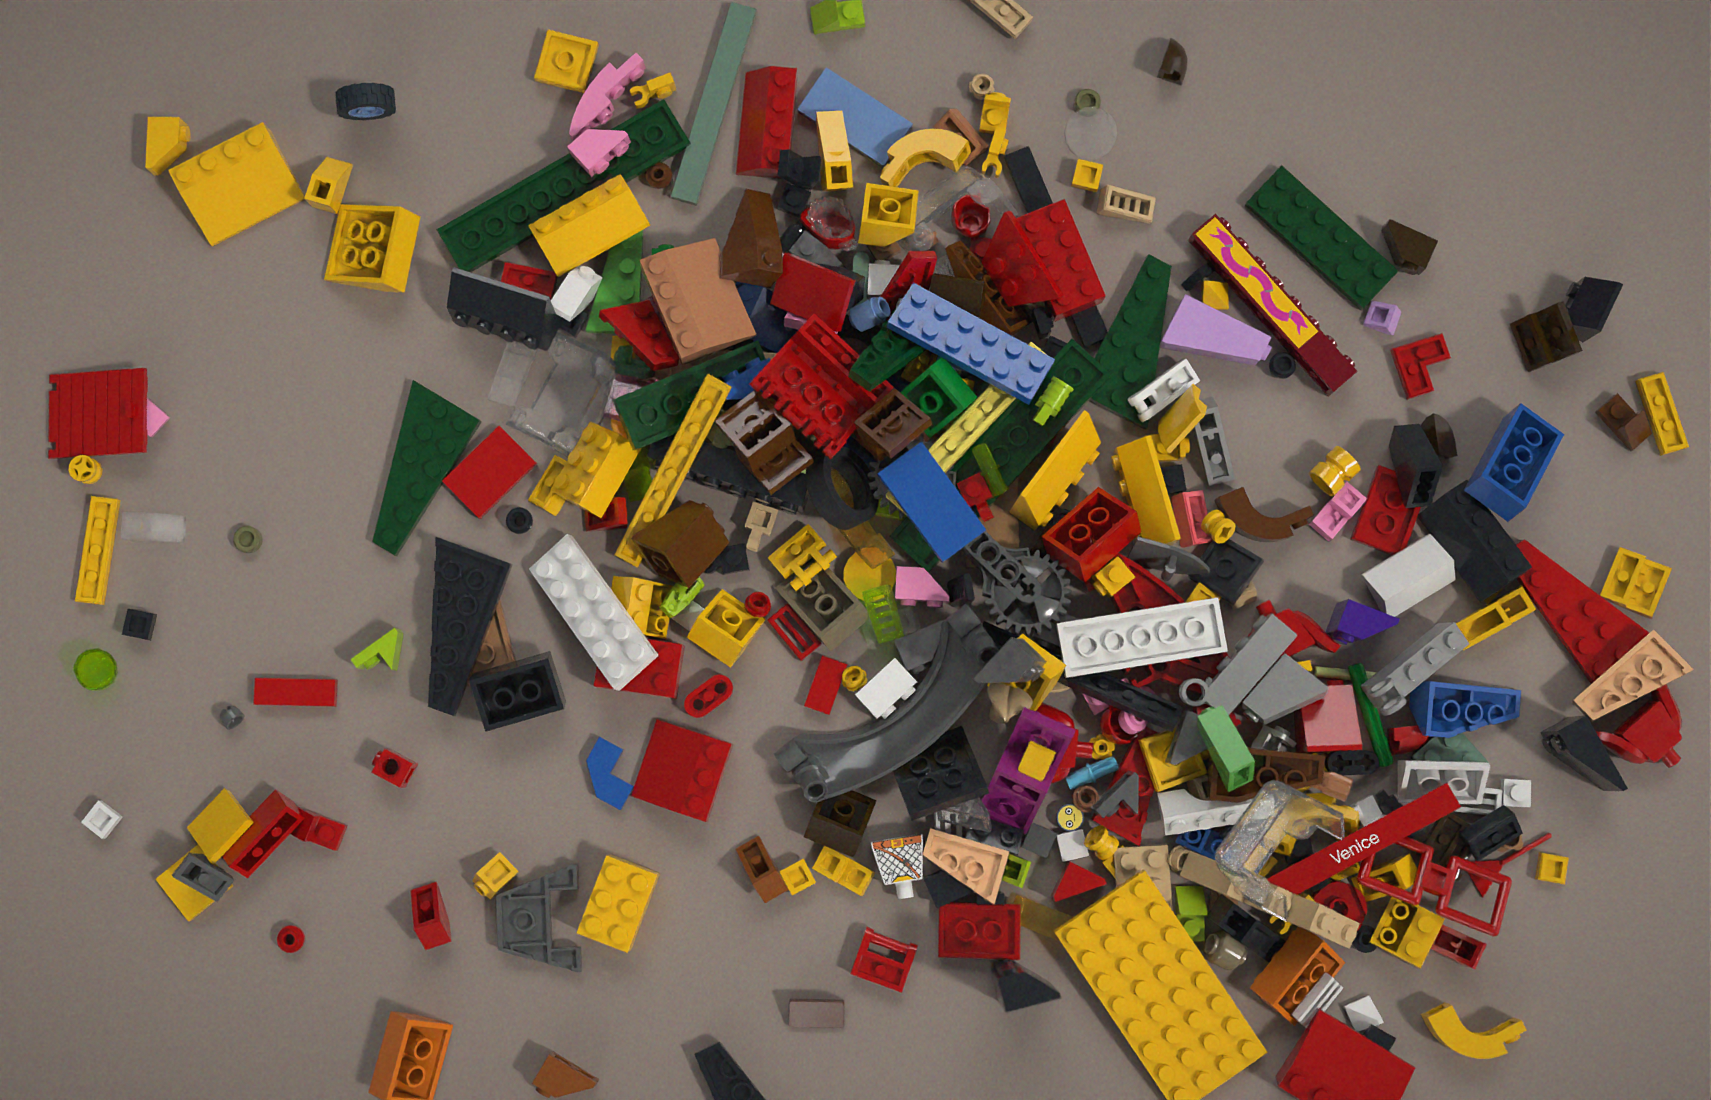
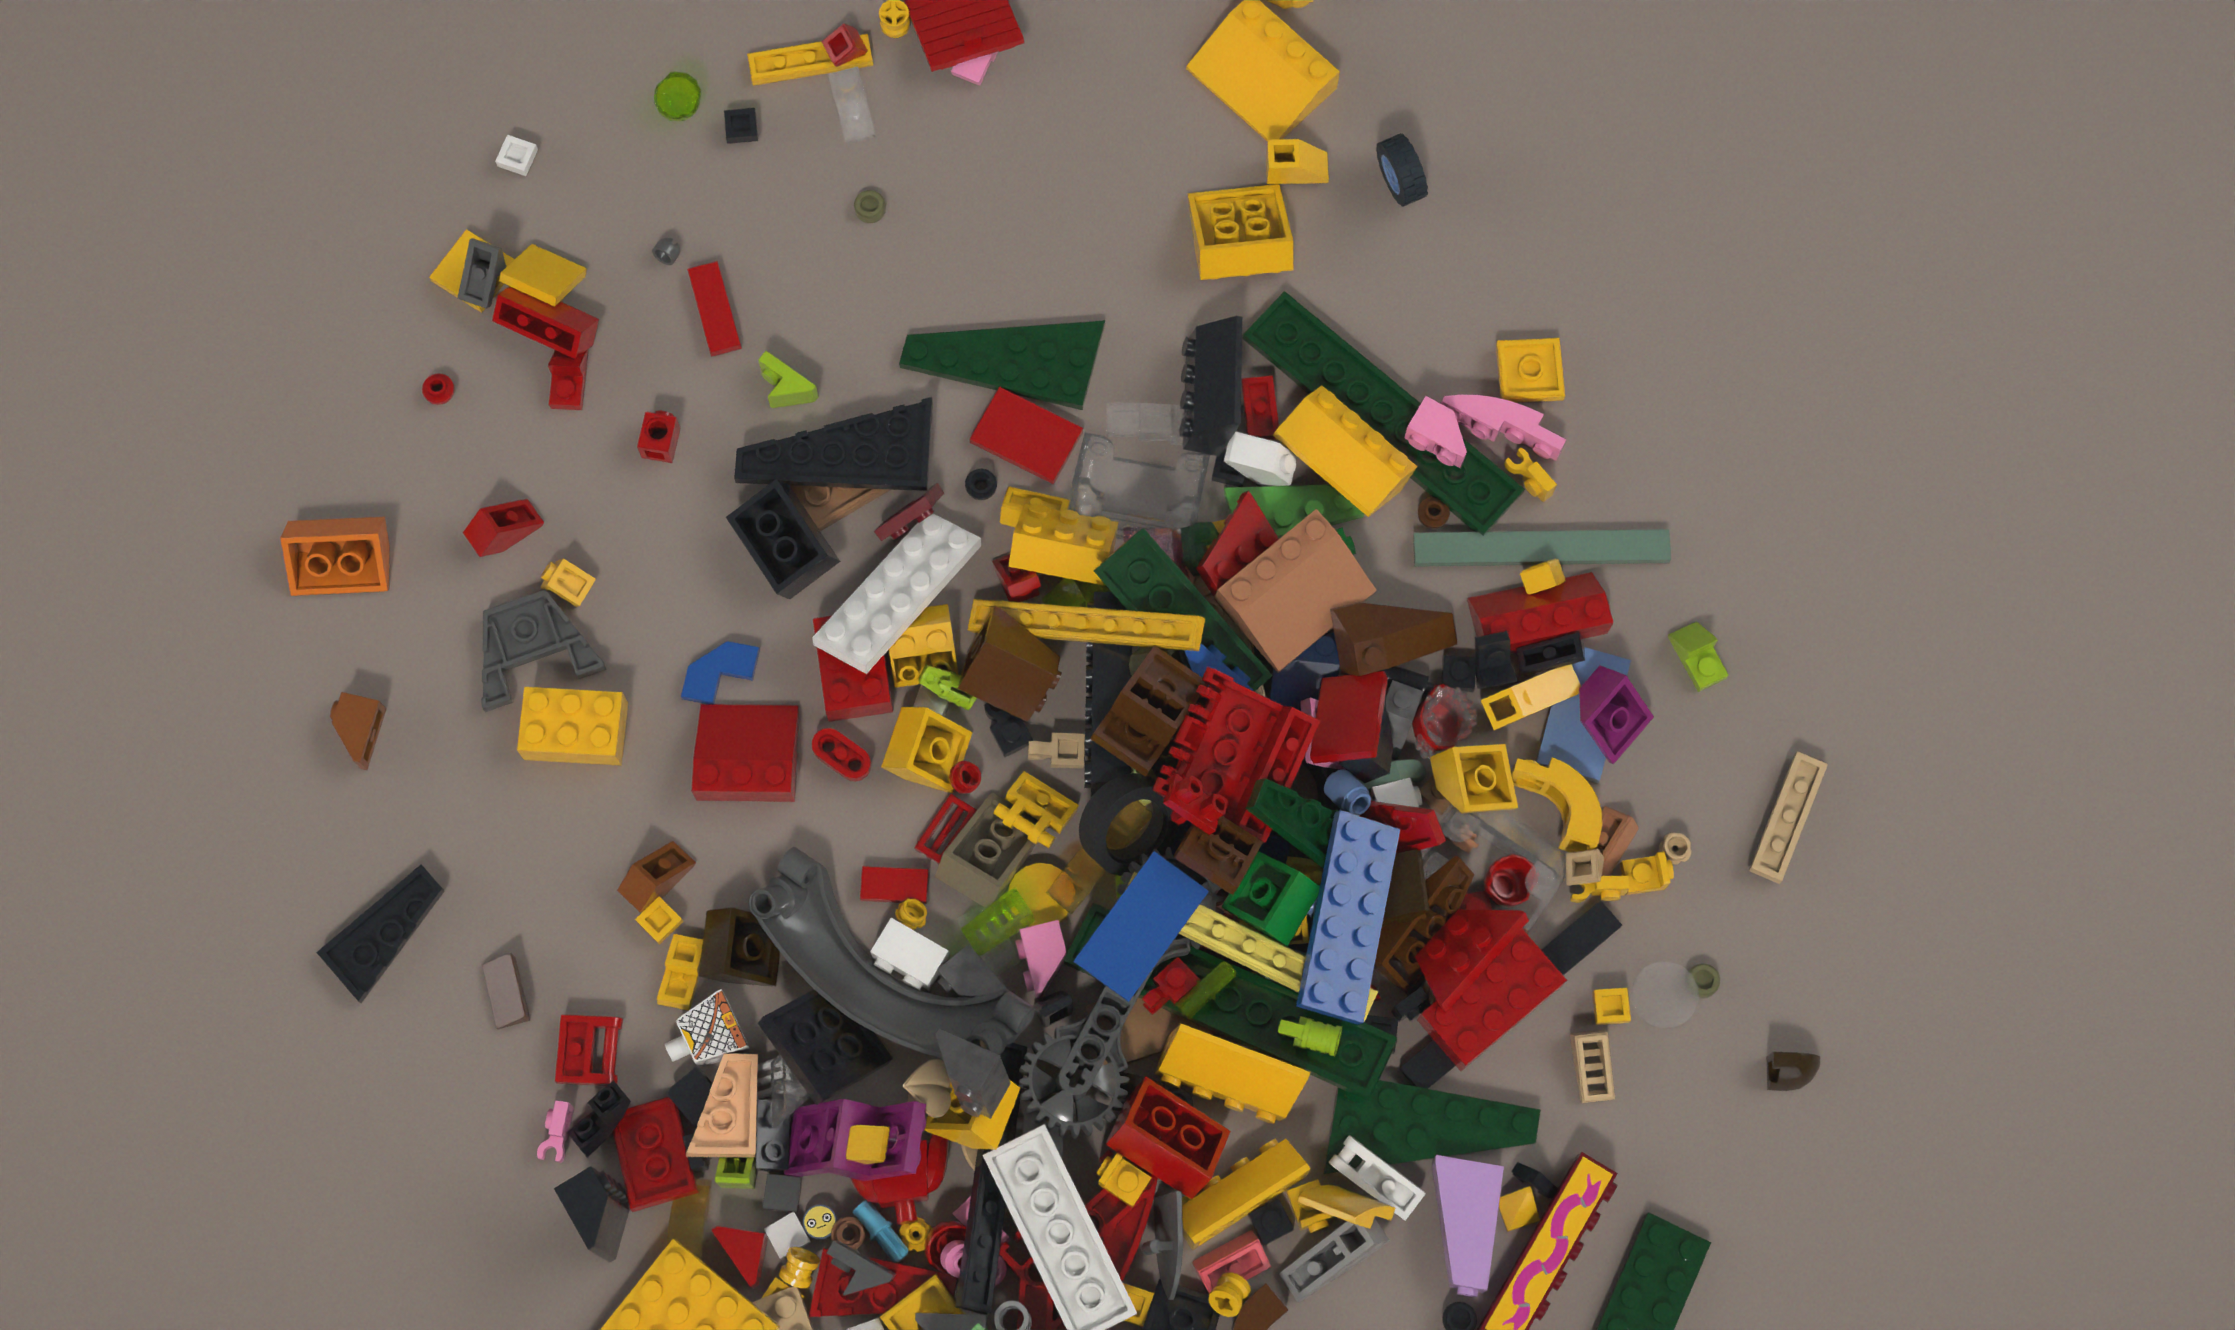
camera: 70 degrees right, 10 degrees down
(96, 518) = (844, 45): none -> red slope
(527, 584) = (919, 509): none -> dark red wing
(739, 109) = (1542, 576): none -> yellow slope
(805, 124) = (1550, 654): none -> black slope
(853, 431) = (1192, 804): none -> red hips
(864, 94) = (1612, 711): none -> magenta slope
(935, 998) = (558, 1122): none -> bright pink plate
(939, 958) = (609, 1108): none -> black slope
(979, 157) = (1584, 867): none -> tan slope

